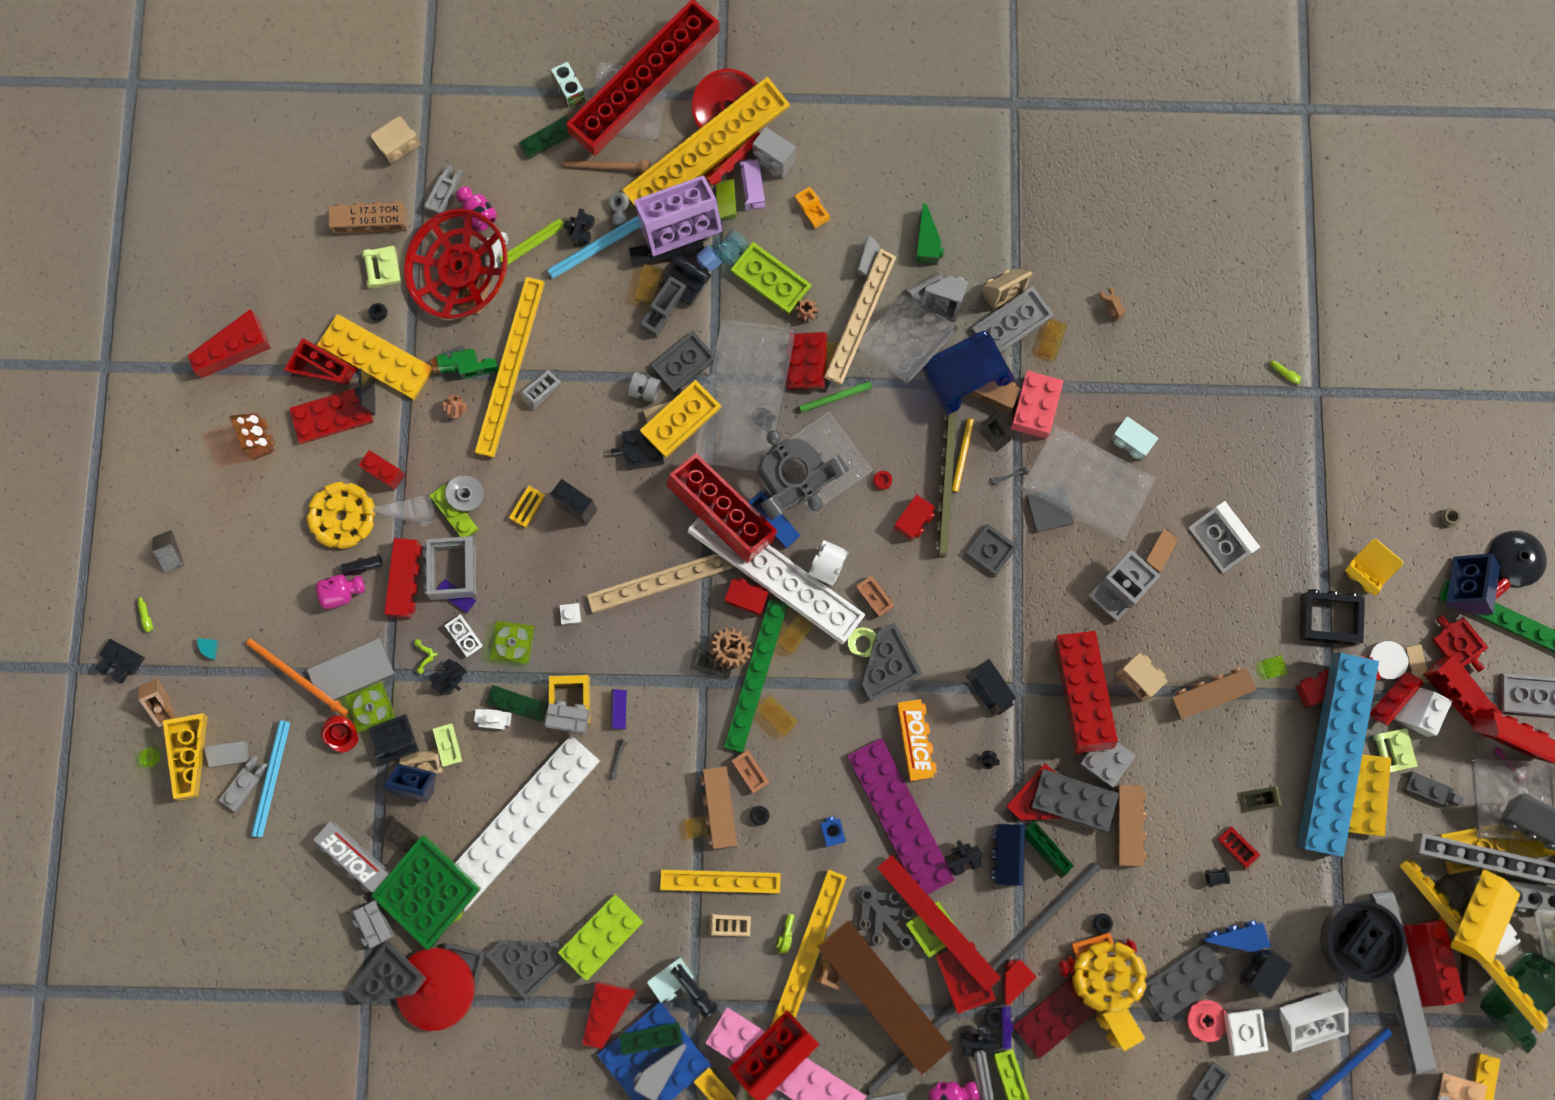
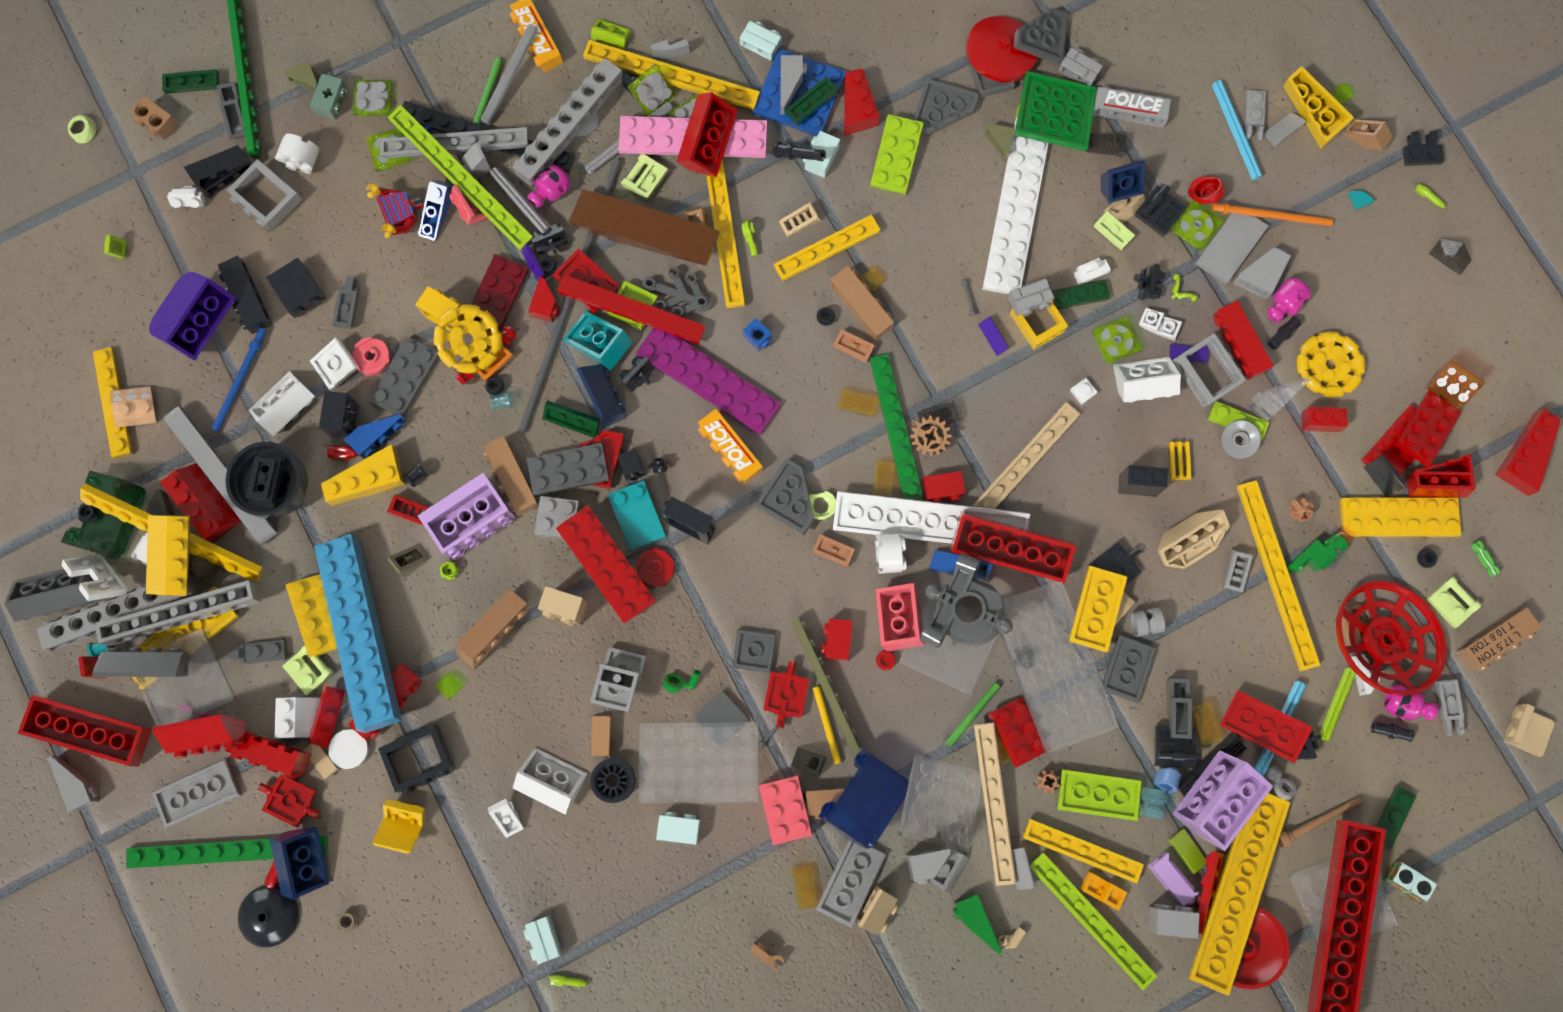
camera: 155 degrees right, 0 degrees up
(301, 411) = (1428, 428): none -> red plate
(330, 285) = (1486, 558): none -> bright green axle
(341, 628) = (1264, 273): none -> light grey slope
(493, 895) = (1000, 138): none -> olive slope
(503, 197) = (1392, 731): none -> black pin
(509, 592) = (1147, 379): none -> white slope
(563, 434) = (1193, 538): none -> tan wedge
(603, 253) = (1266, 726): none -> red plate
(810, 244) = (1083, 851): none -> yellow plate
(835, 191) = (1092, 921): none -> lime plate
(849, 1051) = (648, 180): none -> yellowish green plate
(852, 504) = (899, 617): none -> coral brick
(907, 210) = (1011, 941): none -> tan arm
(984, 497) = (786, 694): none -> red plate
(984, 912) = (598, 340): none -> teal slope
(1014, 773) = (630, 465): none -> black brick
(1032, 725) = (636, 515): none -> teal slope
(1039, 670) = (655, 567): none -> red tile
(1071, 558) = (674, 682): none -> green plate
(1105, 903) = (500, 401): none -> clear light blue bush
(1167, 524) = (595, 777): none -> black wheel
(1197, 816) = (467, 515): none -> lavender brick
(1227, 765) = (444, 570): none -> lime plate
(1257, 897) = (370, 476): none -> yellow wedge
(1276, 527) = (506, 817): none -> white slope
(1278, 940) = (341, 452): none -> red piece
(1291, 413) = (543, 940): none -> light aqua brick
(1549, 1012) = (82, 512): none -> black plate

